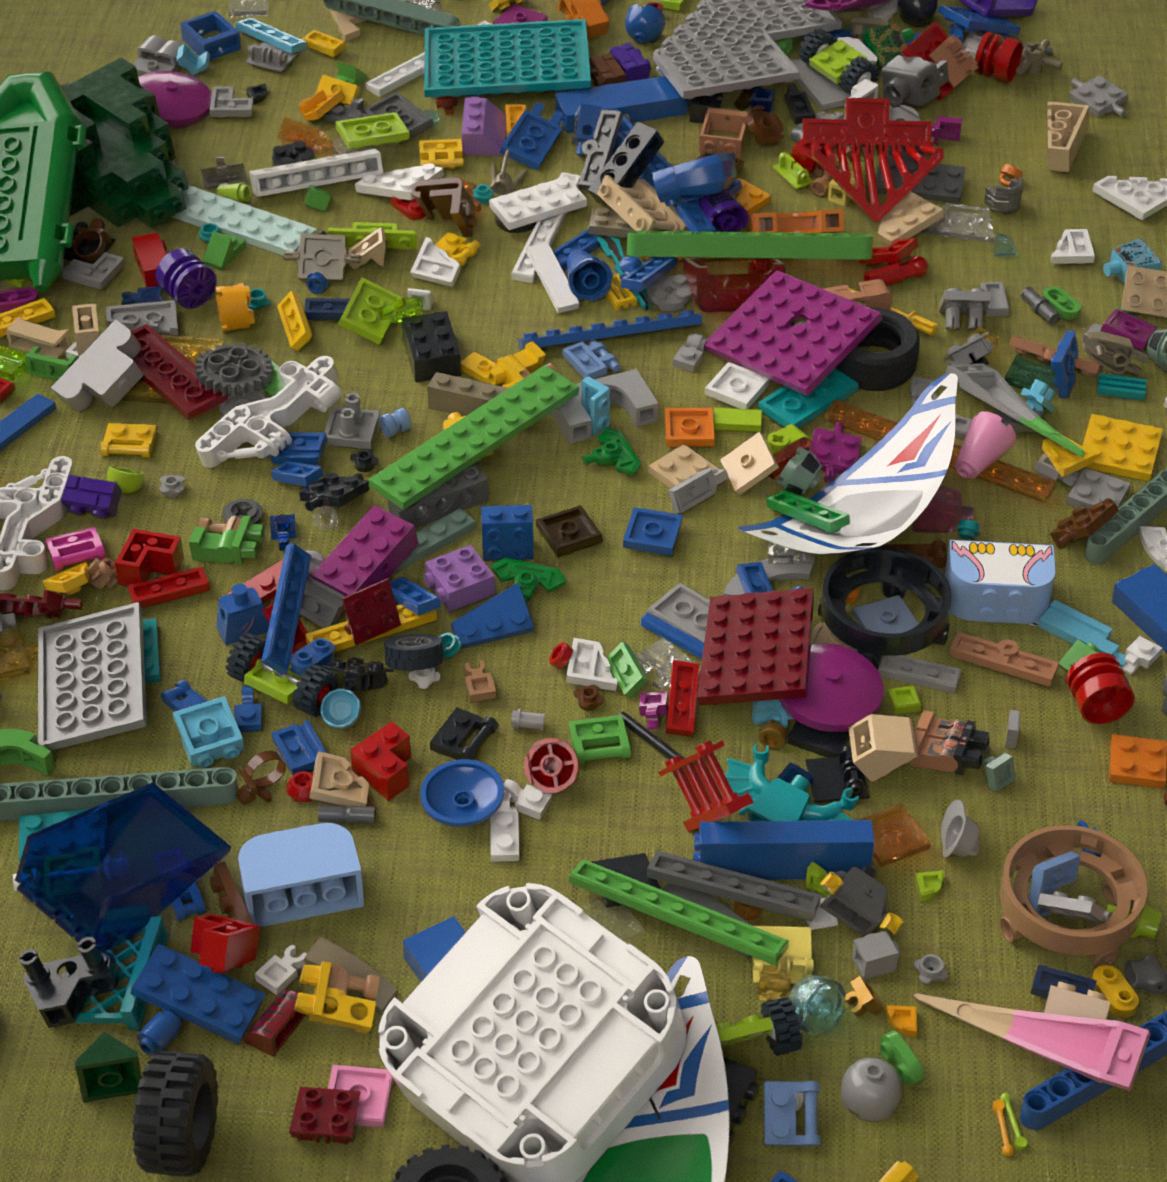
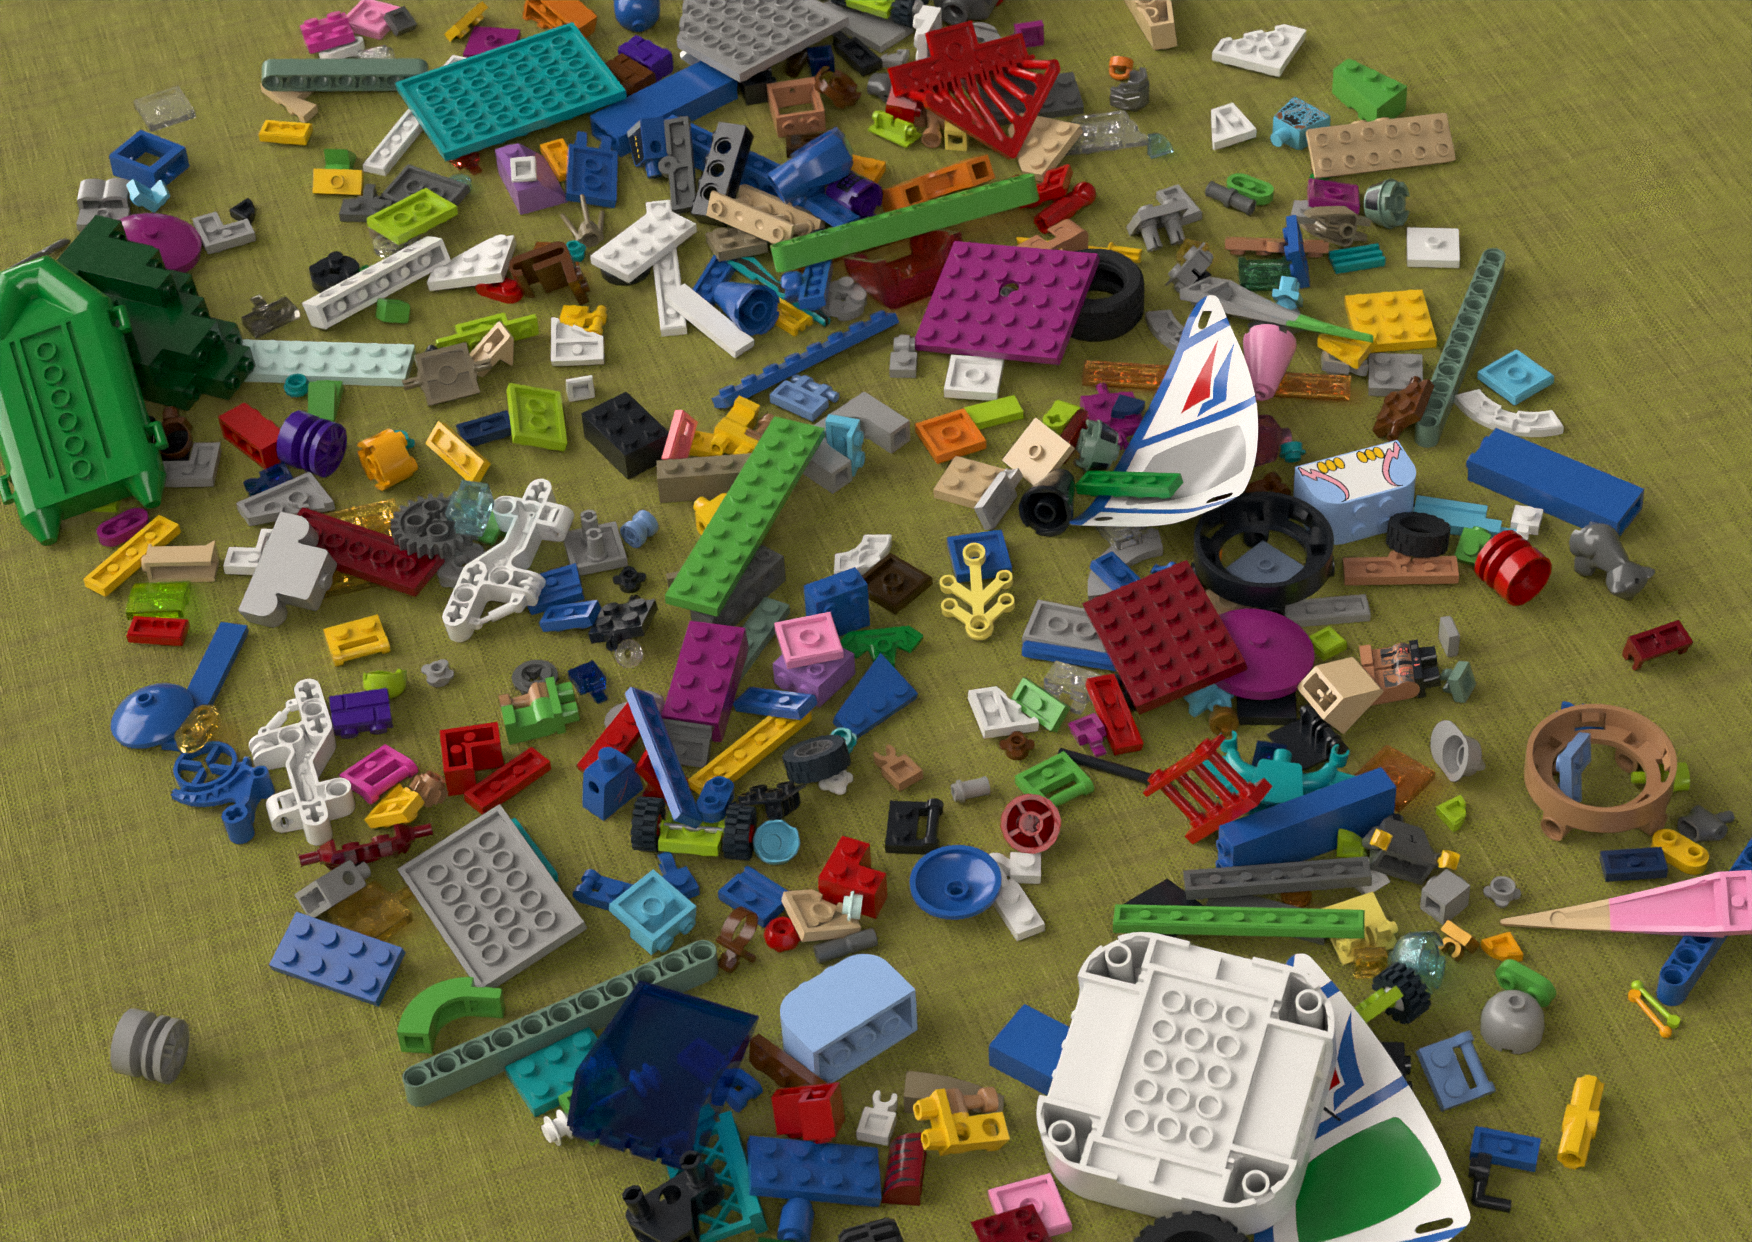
camera: 20 degrees left, 0 degrees up
(47, 366) = (216, 588): bright green hinge -> none
(85, 326) = (241, 533): tan brick -> none
(238, 192) = (296, 331): lime cone -> none
(260, 362) = (470, 508): none -> clear light blue brick
(269, 57) = (234, 164): light grey hinge -> none
(271, 35) = (219, 140): medium azure tile -> none
(296, 131) = (324, 242): clear orange hinge -> none
(312, 284) = (454, 410): blue plate -> none
(319, 104) = (328, 206): light orange slope -> none
(366, 783) = (852, 906): none -> light aqua plate
(371, 612) = (752, 733): dark red hinge -> none
(401, 308) = (576, 405): clear neon green wing -> none
(441, 153) = (499, 214): yellow plate -> none
(461, 552) = (809, 640): none -> bright pink tile
(465, 357) = (680, 436): none -> coral tile
(473, 117) = (523, 169): none -> white slope
(548, 504) = (865, 555): none -> white tile
(560, 655) = (964, 713): red tile -> none
(615, 451) = (888, 486): green piece -> none
(630, 563) = (977, 597): none -> light yellow plant
(734, 505) = (1049, 504): none -> black cone
(795, 408) = (1051, 382): teal plate -> none
(845, 446) = (1127, 406): none -> dark blue tile
(1034, 633) = (1418, 534): none -> black tyre
(1067, 1002) = (1649, 875): tan brick -> none
(1071, 909) = (1619, 782): light grey plate -> none
(1137, 761) = (1580, 627): orange plate -> none

